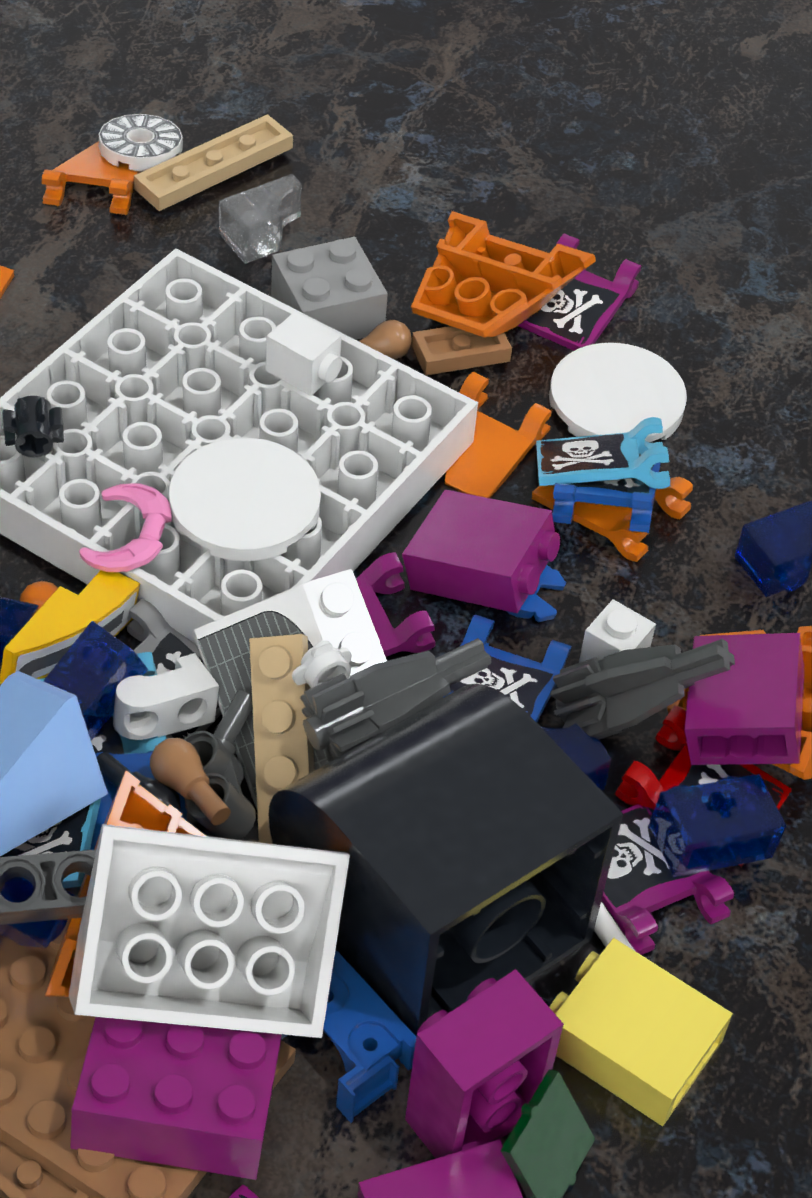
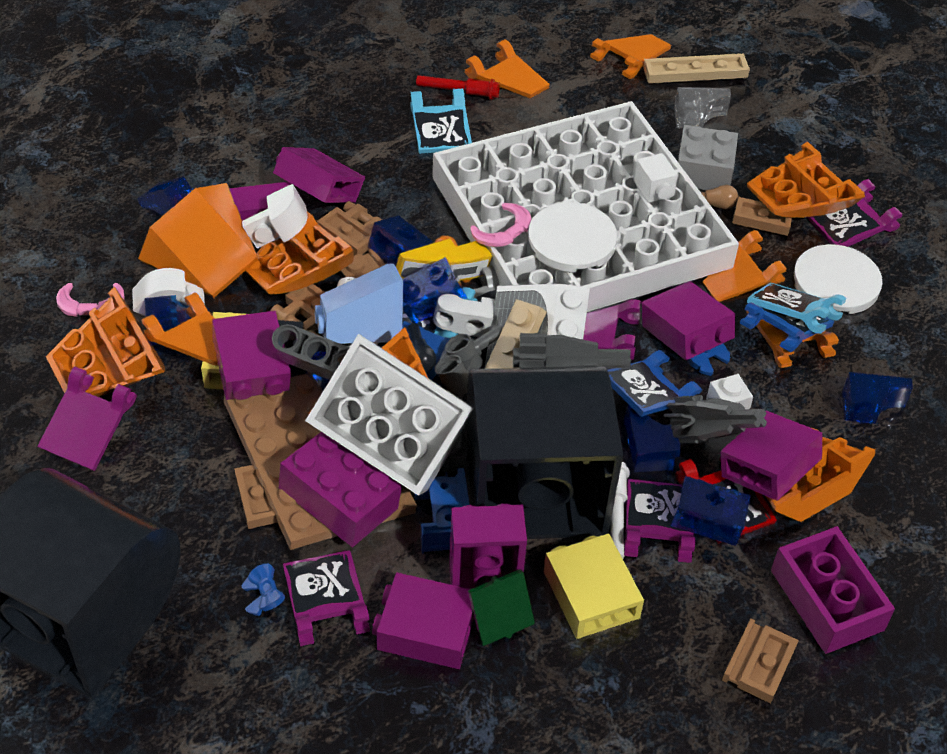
camera: 35 degrees right, 0 degrees up
(33, 426) = (487, 156): black gear -> none
(139, 141) = (662, 42): tile -> none
(180, 768) = (442, 345): medium nougat piece -> none
(322, 664) = (541, 324): white plate -> none

